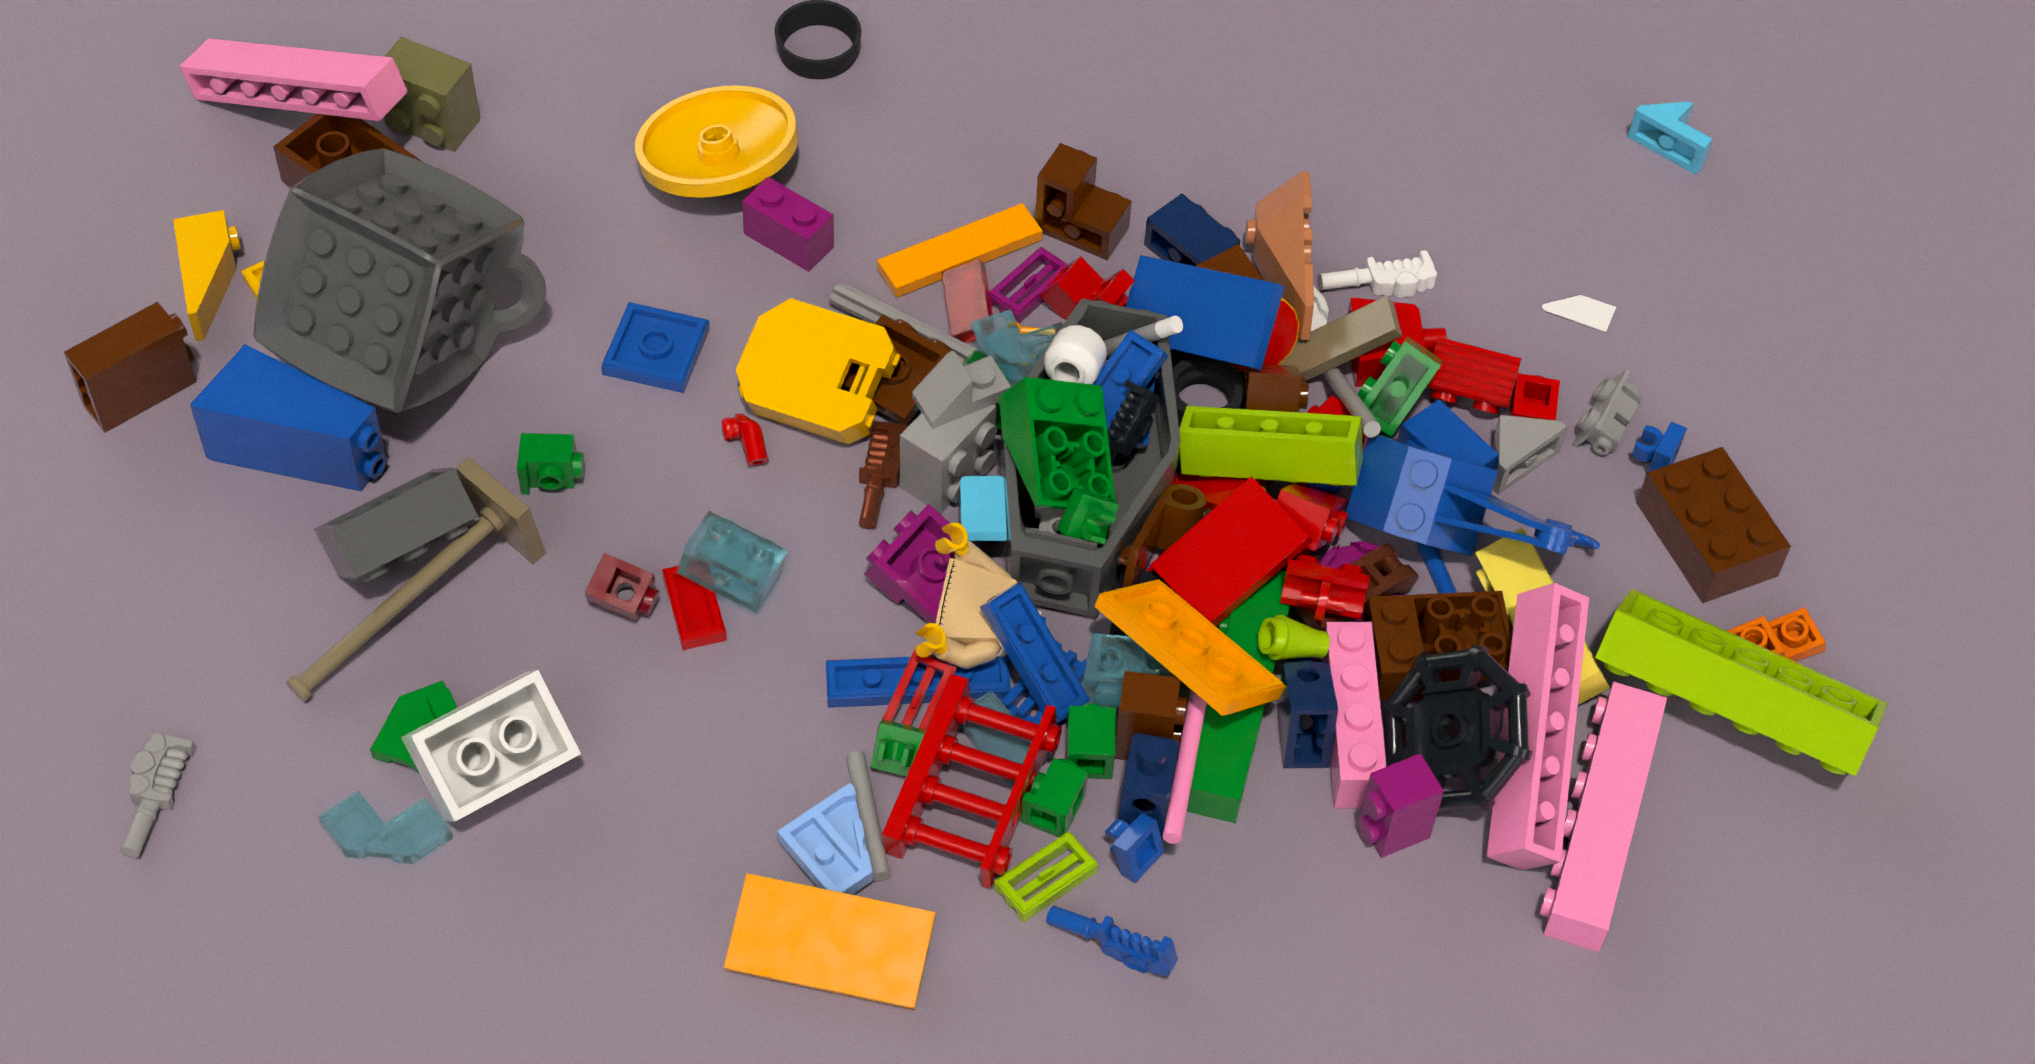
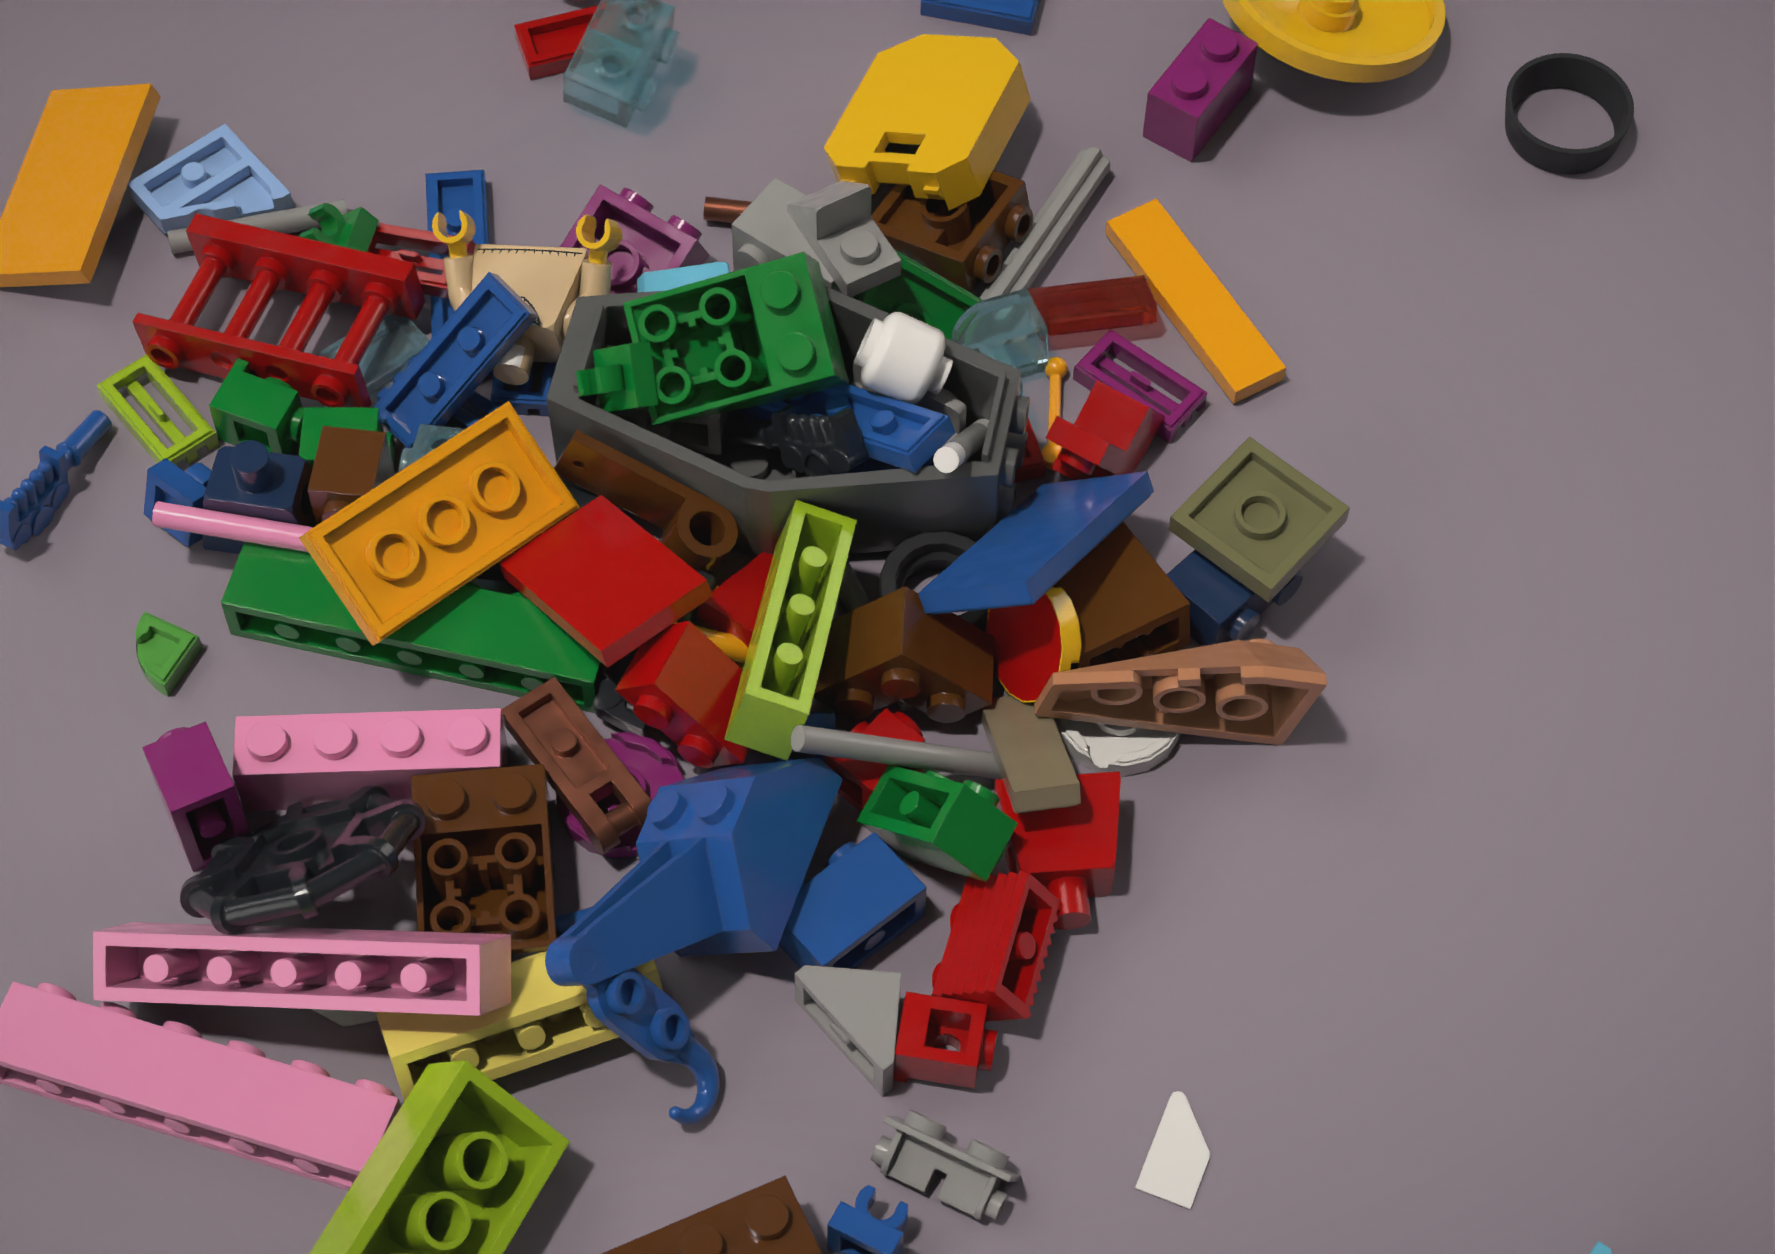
camera: 90 degrees right, 5 degrees up
(749, 434) = (841, 72): red arm -> none
(1077, 210) = (1282, 400): reddish brown brick -> none
(1171, 205) = (1258, 519): none -> olive plate
(1257, 861) = (164, 651): none -> bright green tile
(1290, 639) = (463, 658): lime cone -> none
(1310, 693) = (377, 676): dark blue torso -> none
(1325, 588) = (555, 673): red hips -> none
(1390, 278) = (1205, 859): white piece -> none

